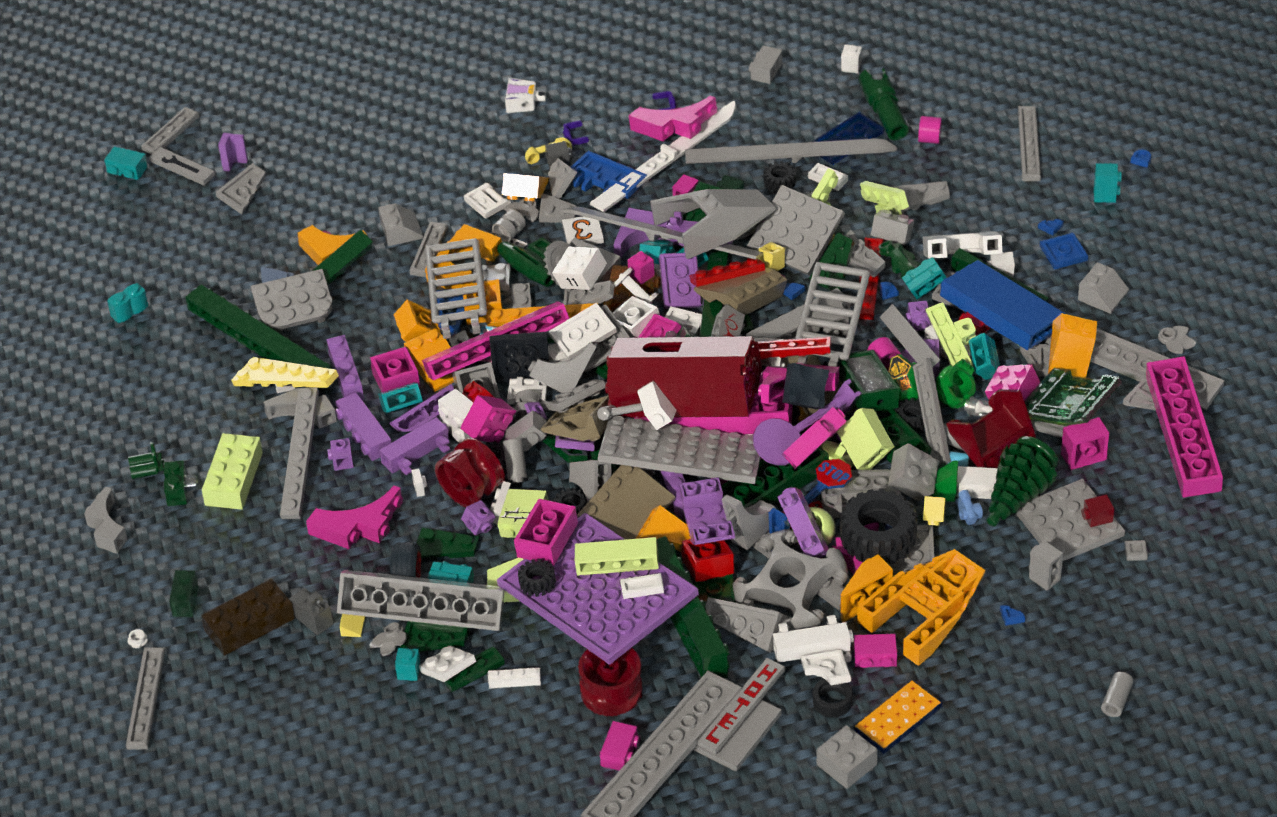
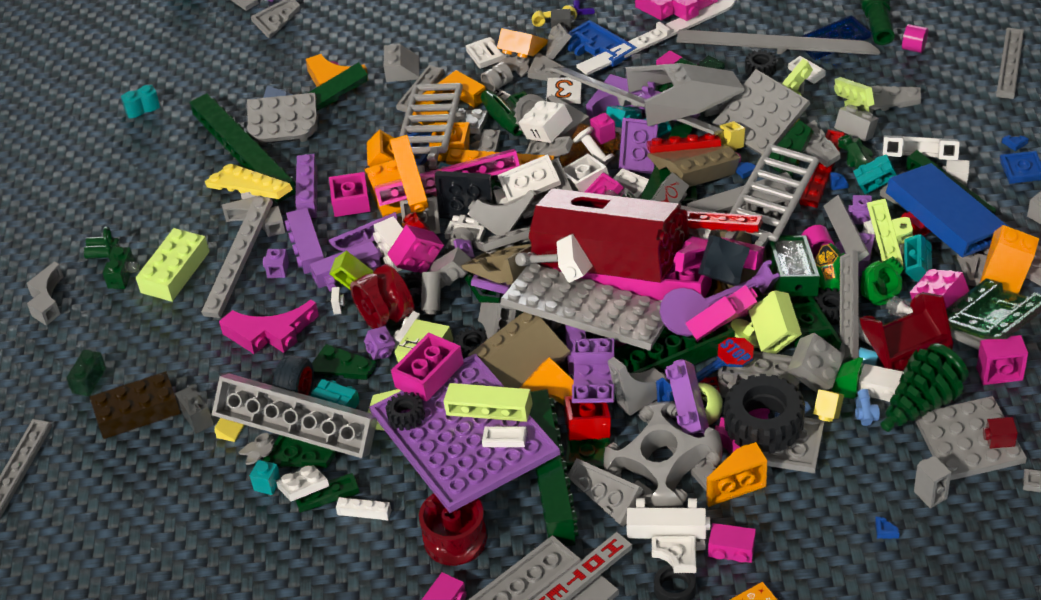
camera: 15 degrees right, 0 degrees up
(137, 638) = (30, 409): white plate -> none
(400, 397) = (346, 218): teal brick -> none
(425, 450) = (348, 269): none -> lime brick
(462, 342) = (409, 173): none -> light orange slope
(935, 590) = (806, 489): light orange wedge -> none

